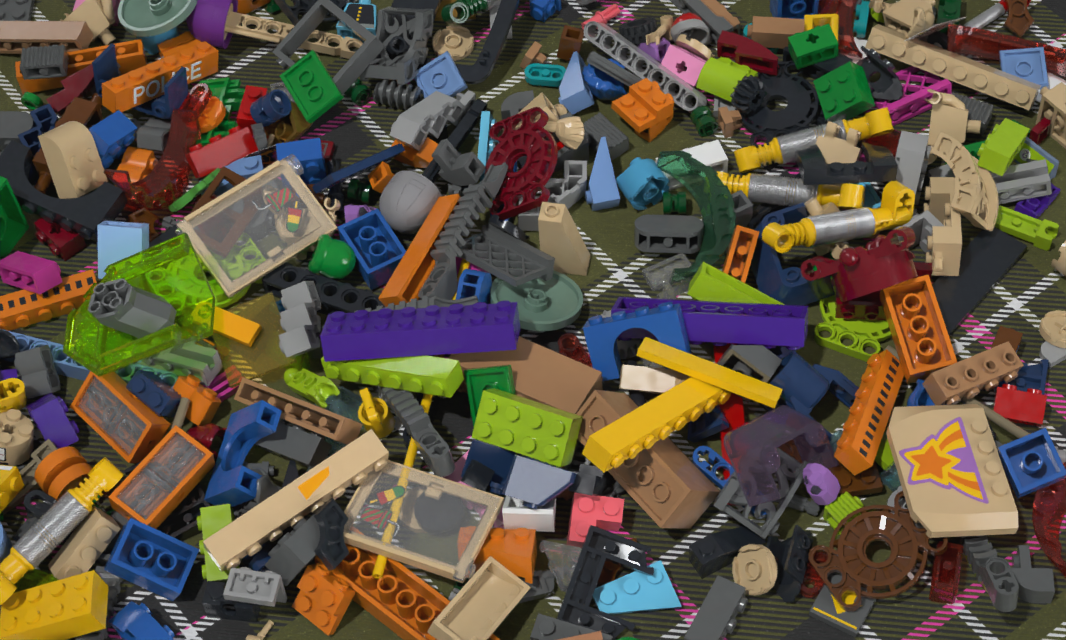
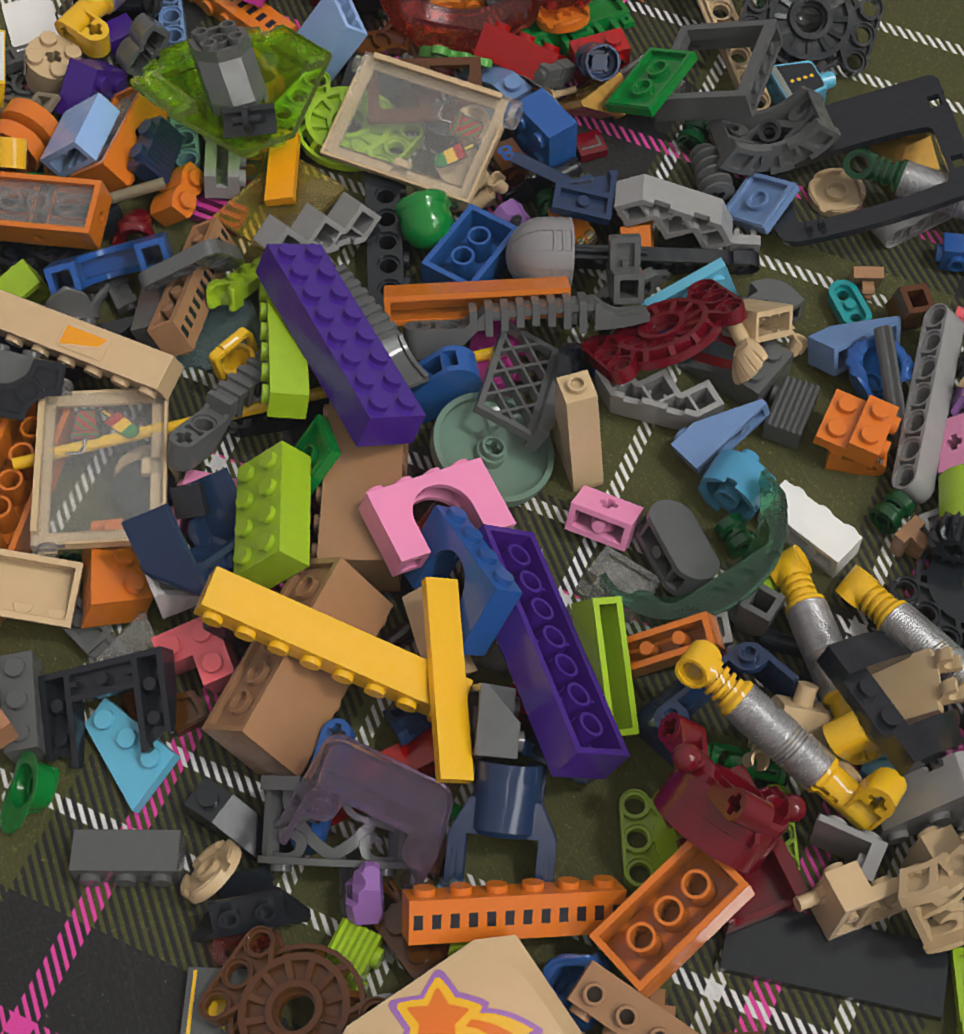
camera: 60 degrees right, 5 degrees up
(104, 433) = (80, 135): none -> light blue brick
(191, 313) = (249, 120): none -> black hips
(292, 385) = (208, 253): none -> dark grey beam
(390, 156) = (585, 197): none -> dark blue wing
(571, 354) = (390, 509): none -> bright pink arch
(623, 262) = (603, 518): none -> bright pink brick

